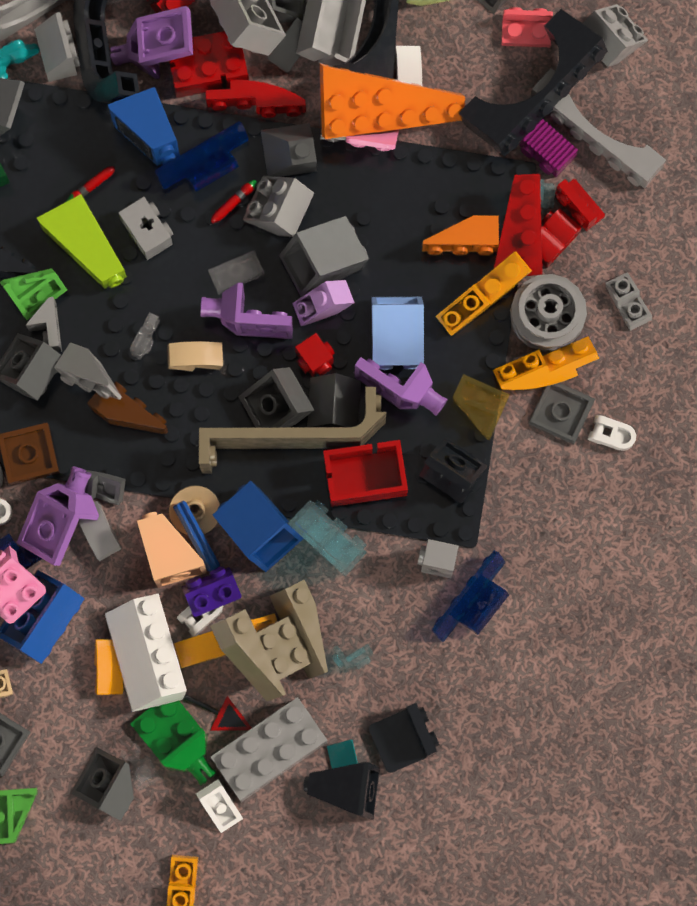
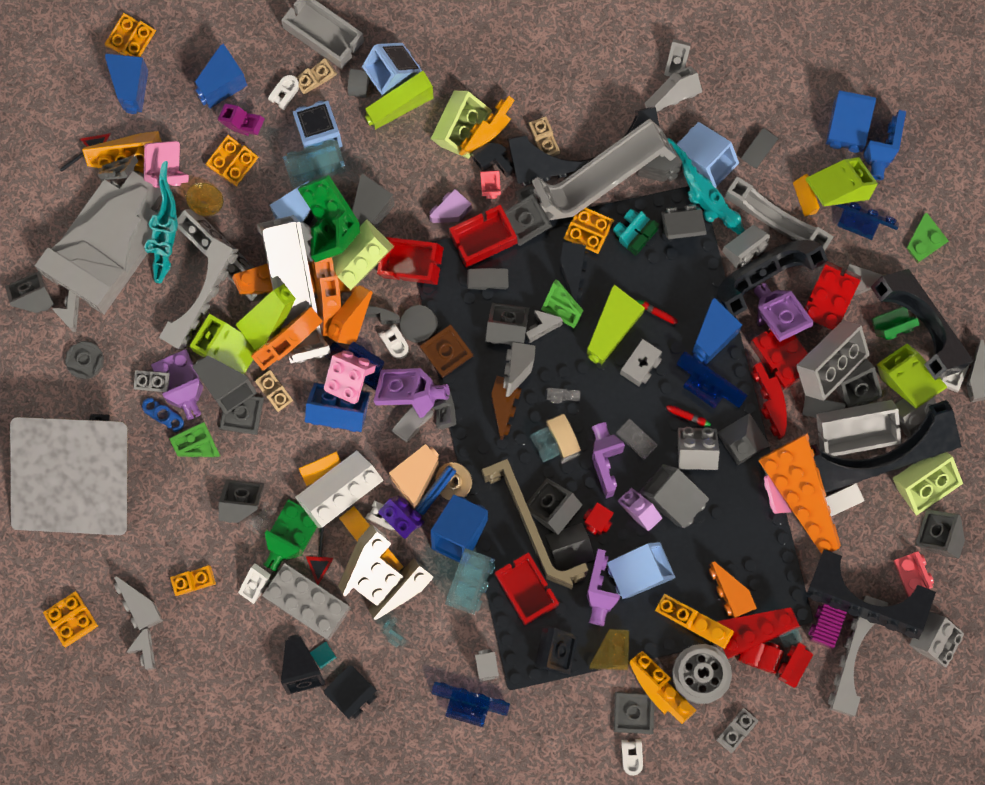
camera: 70 degrees right, 0 degrees up
(196, 381) = (545, 444): none -> clear light blue bracket

